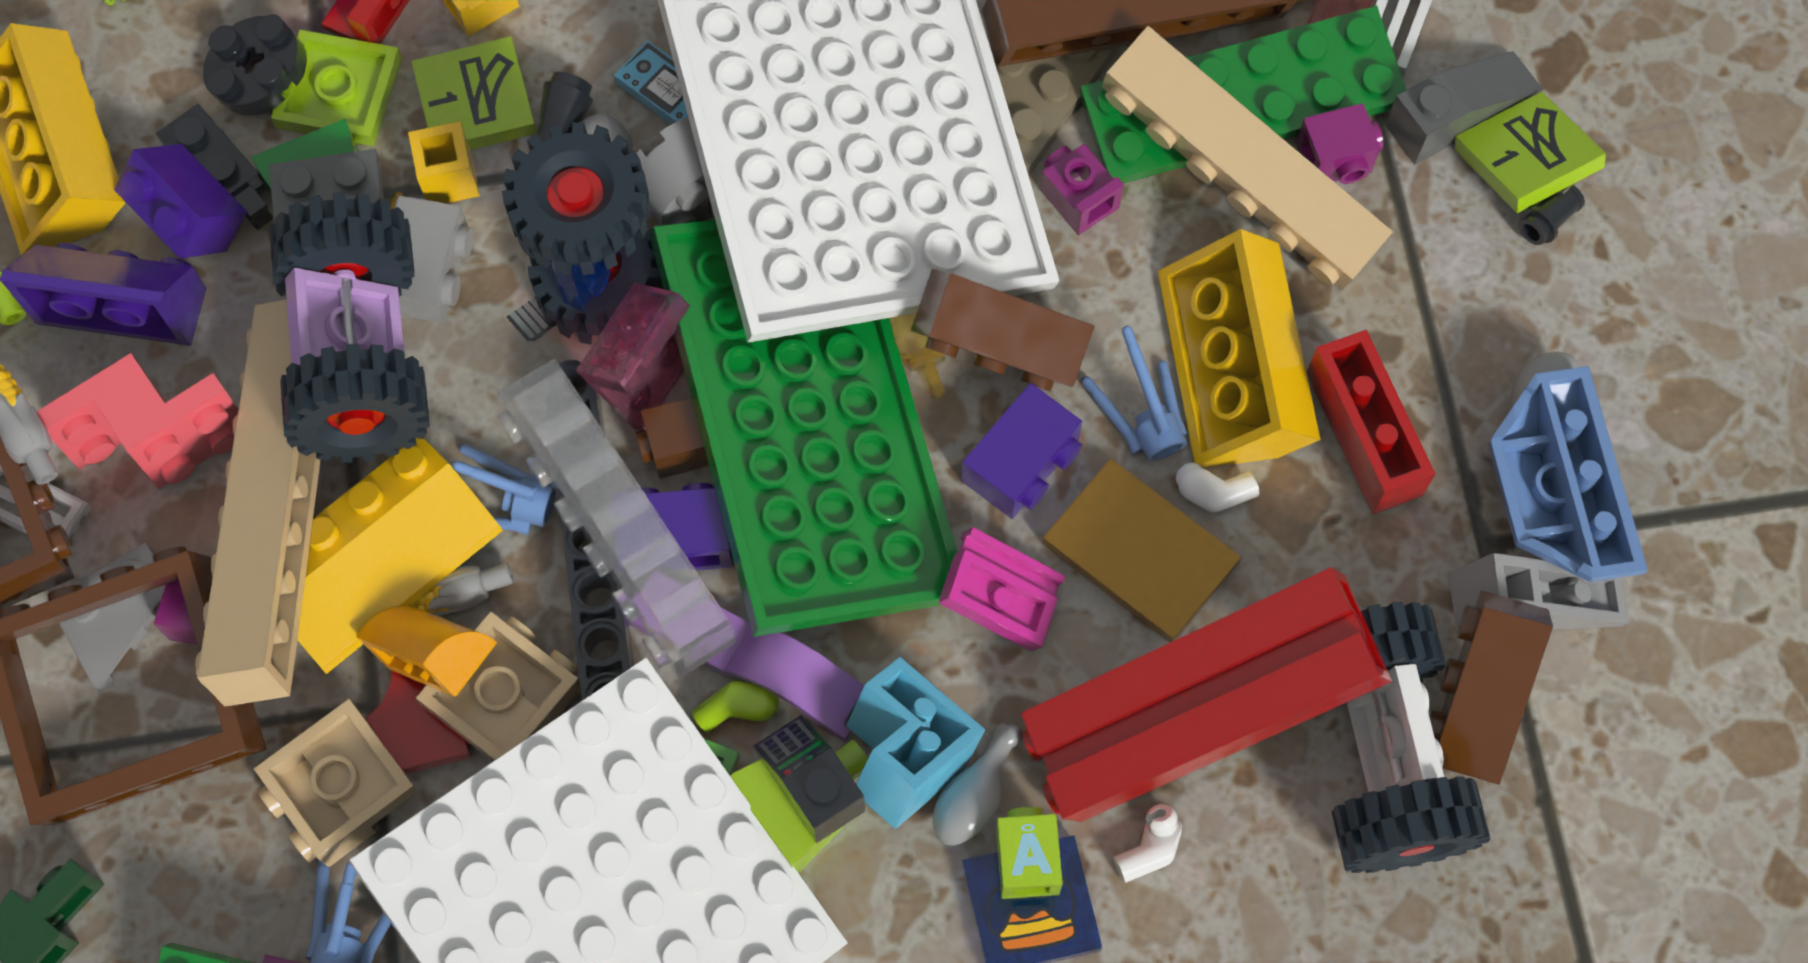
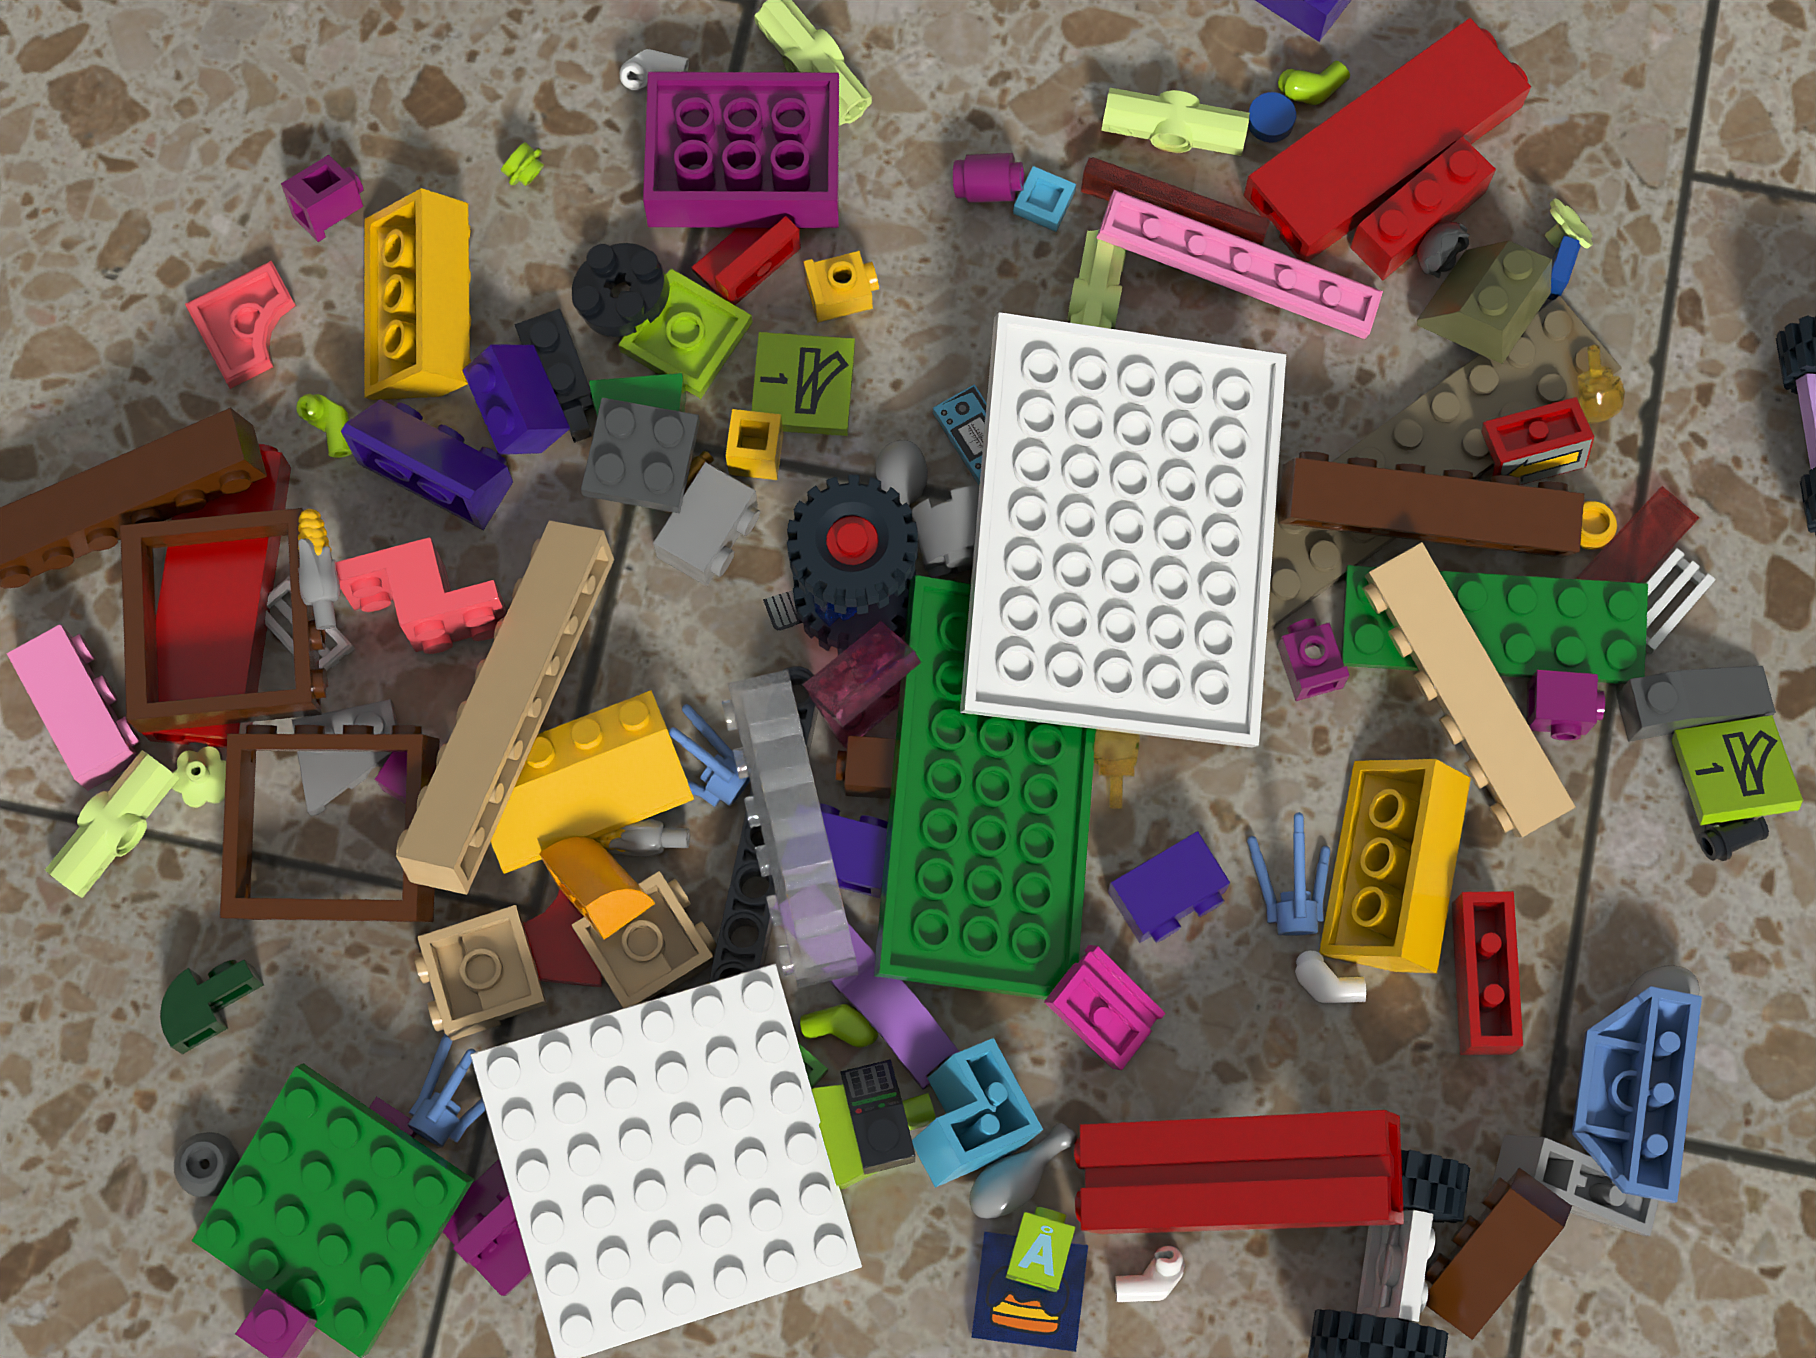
camera: 20 degrees right, 5 degrees up
(348, 366) = (617, 583): black plate -> none
(563, 102) = (876, 424): black cone -> none
(1001, 330) = (1188, 776): reddish brown brick -> none
(1141, 550) = (1241, 1013): pearl gold tile -> none

